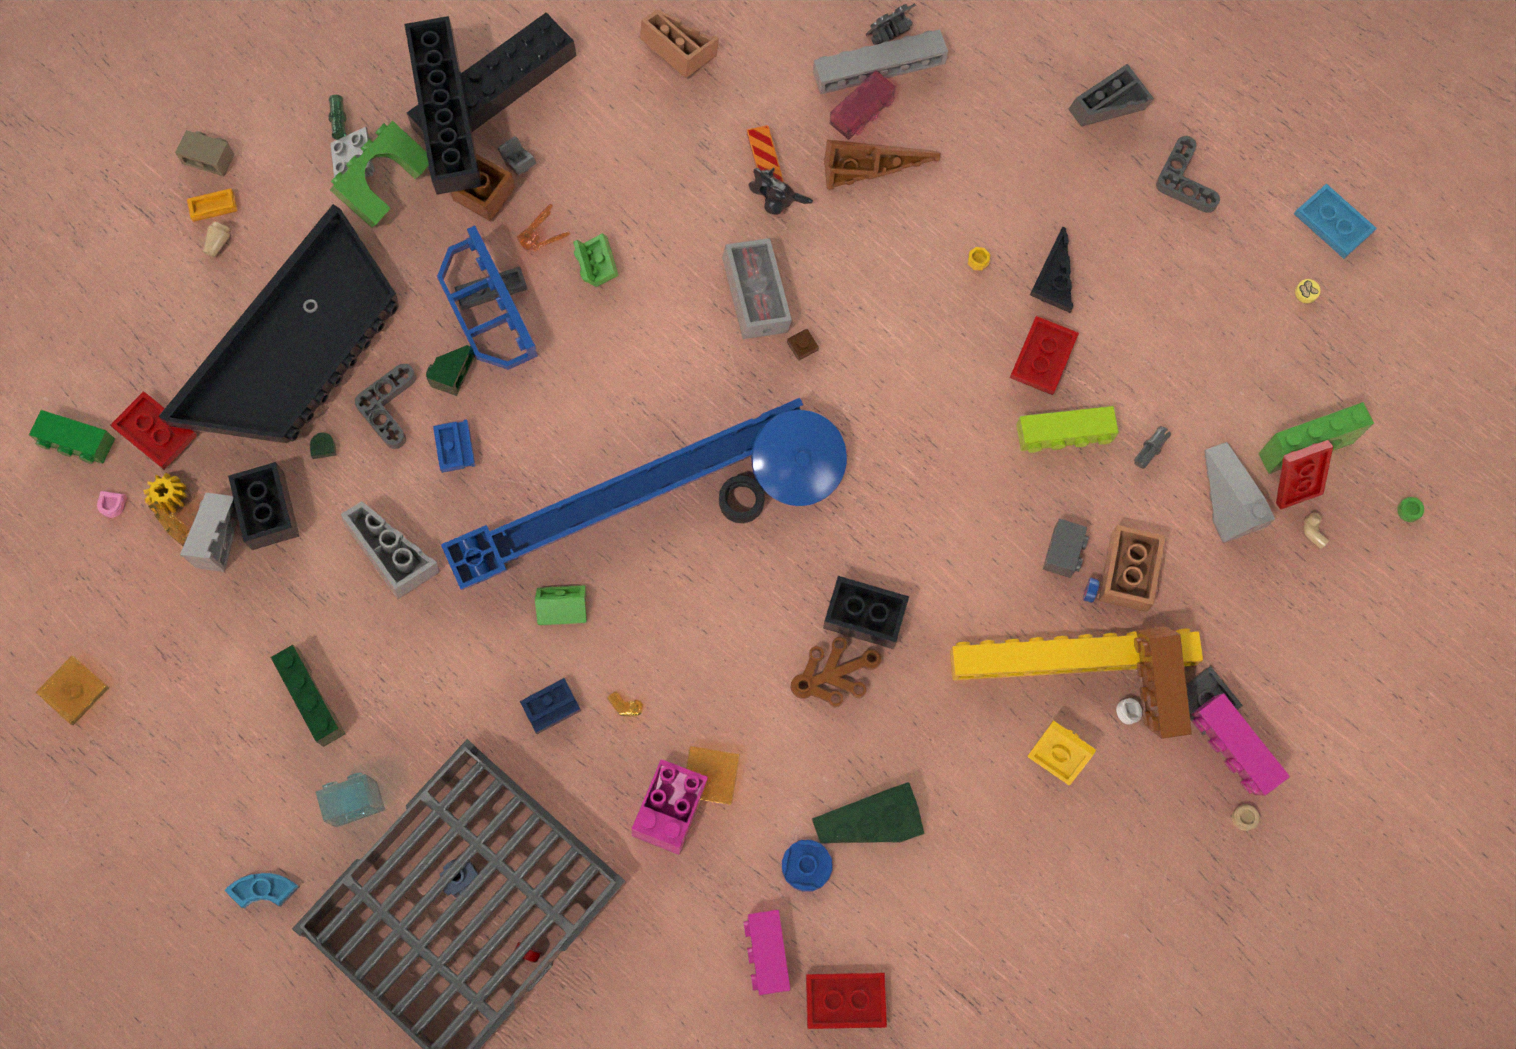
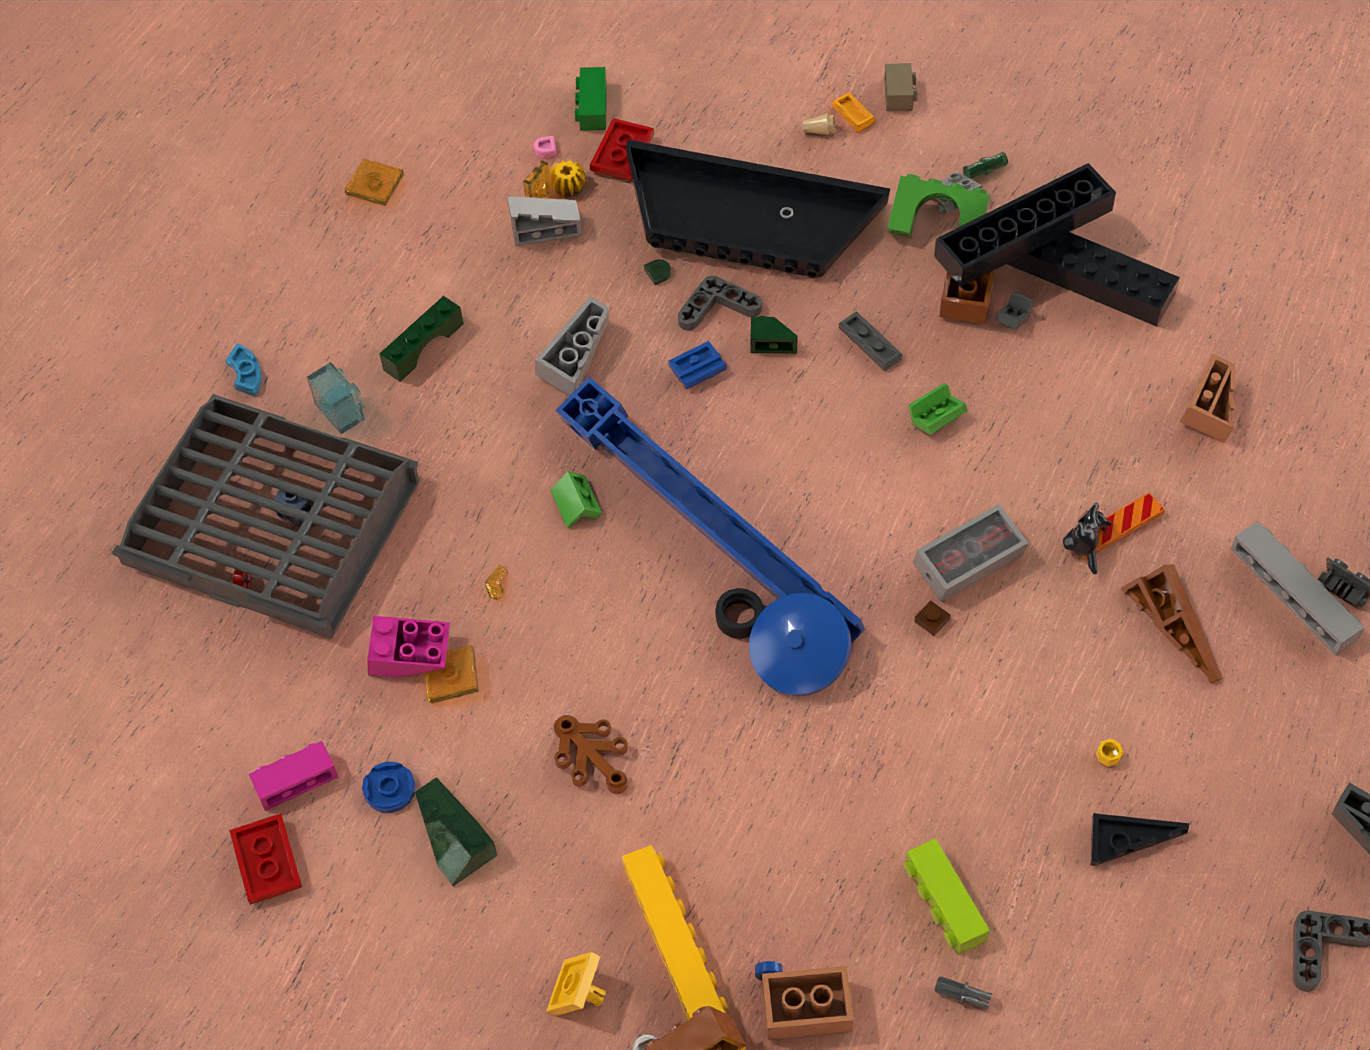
camera: 75 degrees right, 15 degrees down
(263, 506) = (580, 245): black brick -> none
(504, 302) = (853, 347): blue plate -> none
(529, 237) = (936, 351): clear orange plant -> none
(550, 706) = (474, 522): dark blue plate -> none
(862, 105) = (1234, 586): clear pink brick -> none
(865, 612) = (659, 756): black brick -> none
(1044, 355) = (1024, 850): red plate -> none
(1065, 548) = (806, 932): dark grey brick -> none

